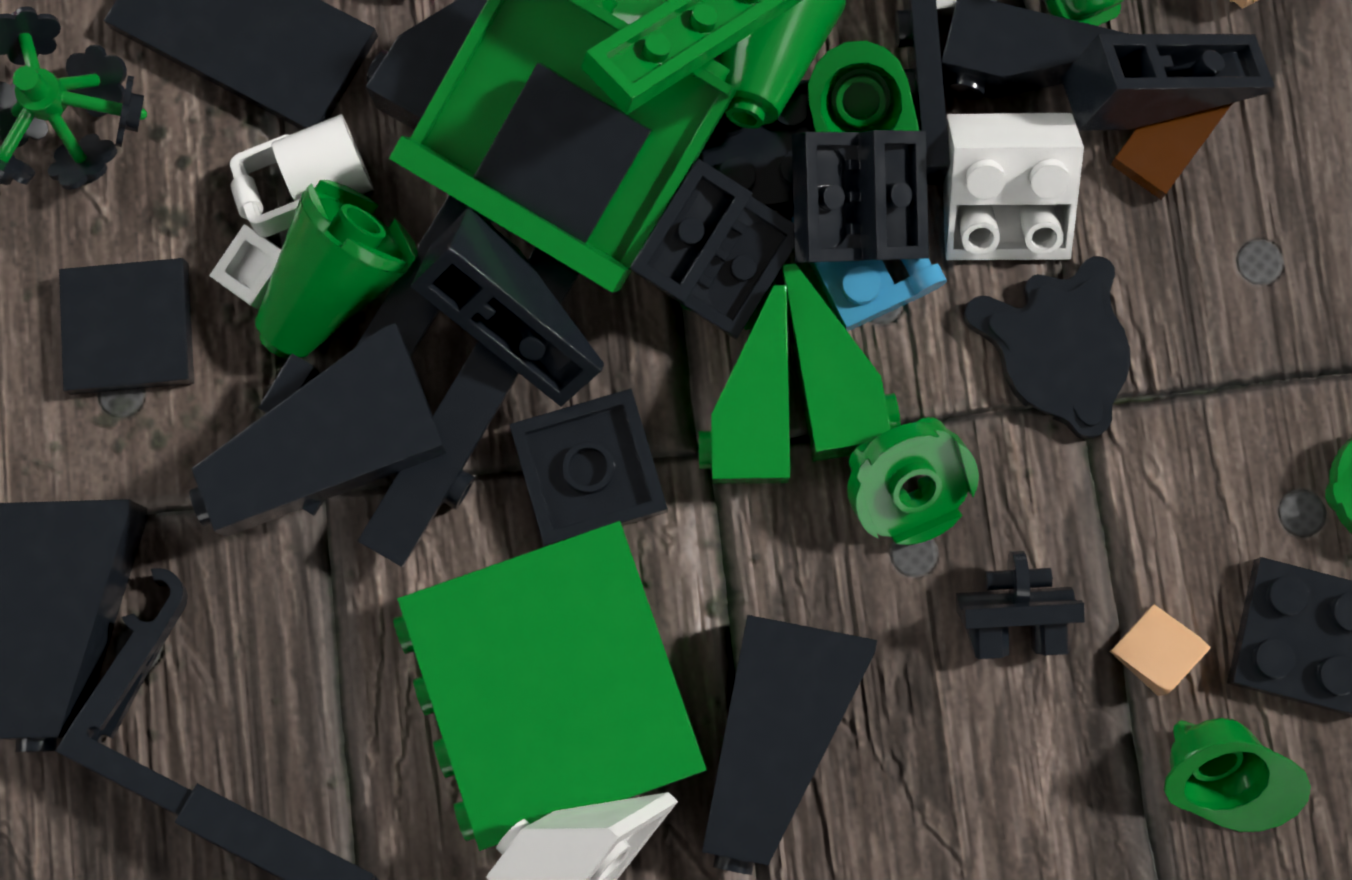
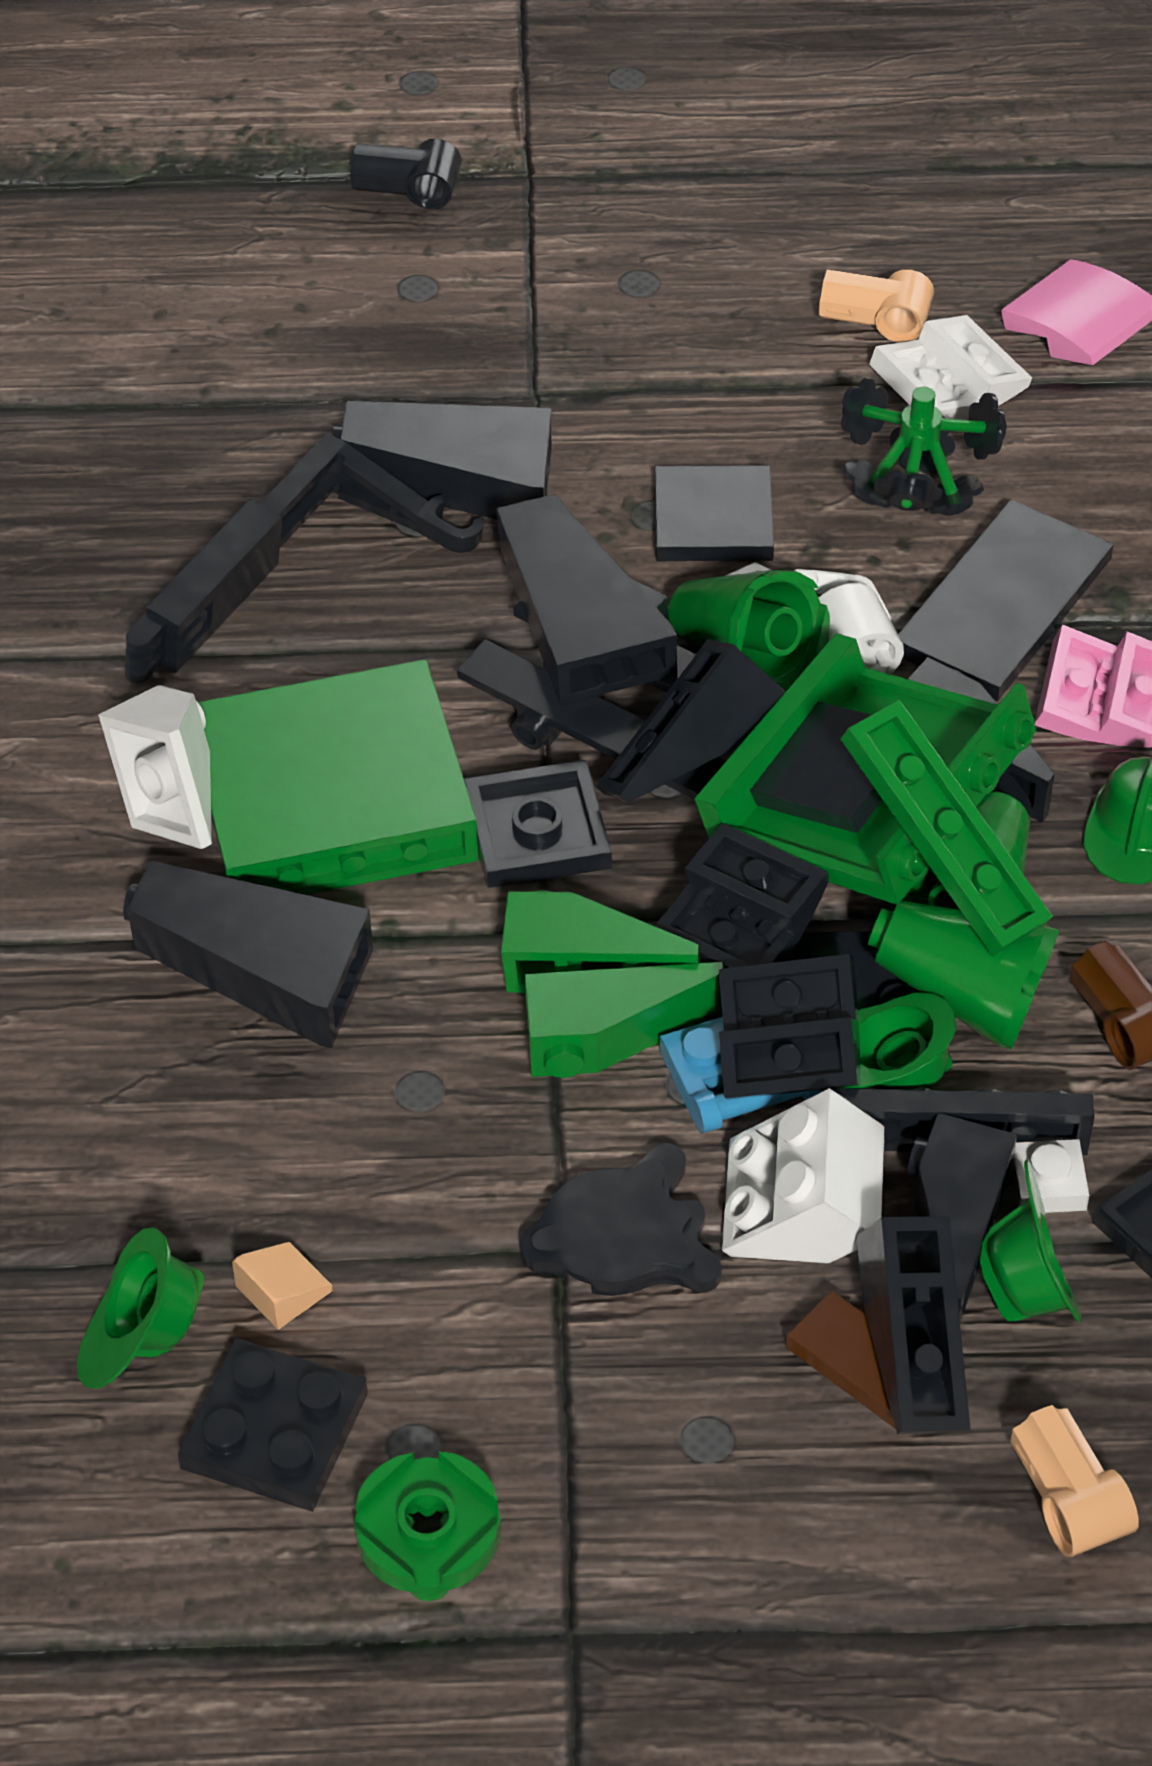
camera: 90 degrees right, 30 degrees down
(894, 457) = (511, 1068): green plate -> none
(1047, 610) = (351, 1149): black hips -> none

